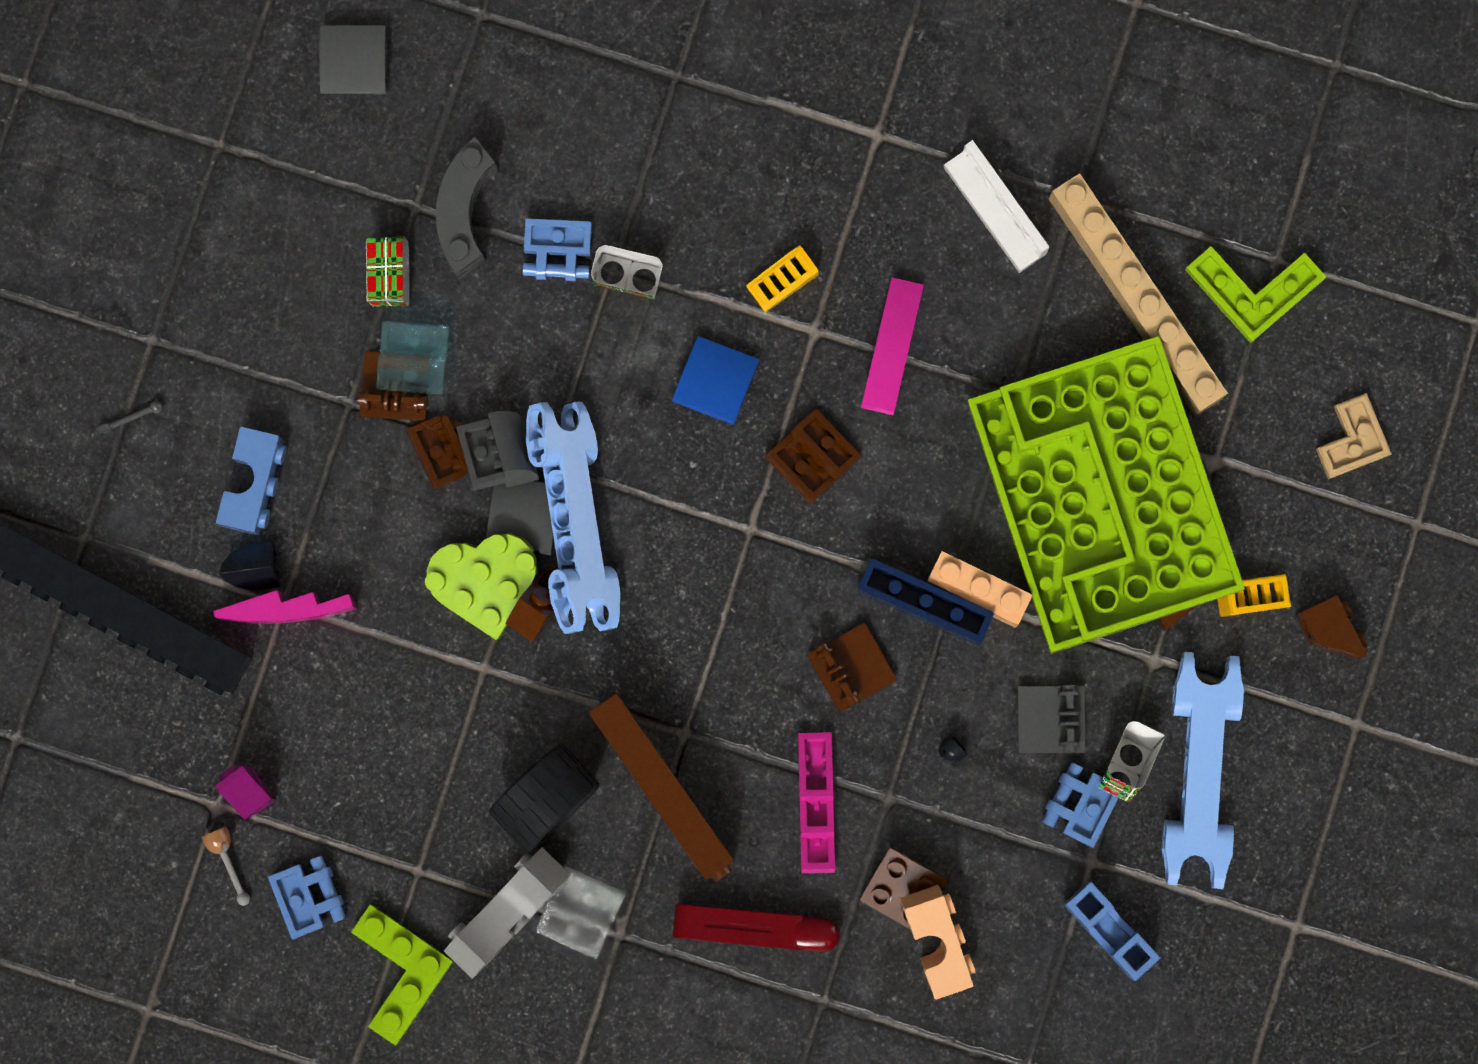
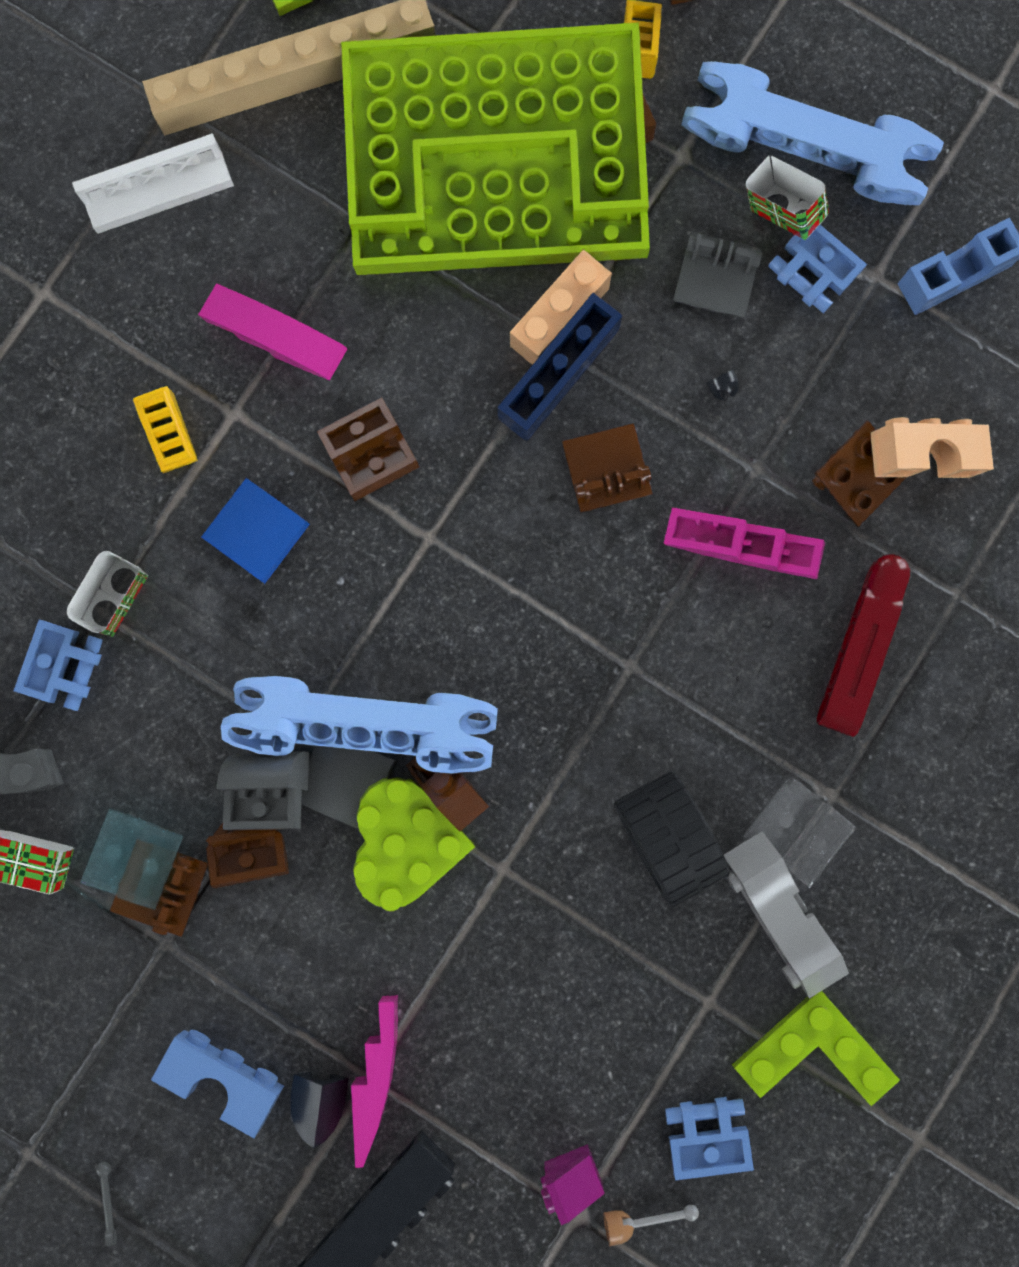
camera: 75 degrees left, 0 degrees up
(662, 788) = (693, 702): reddish brown brick -> none

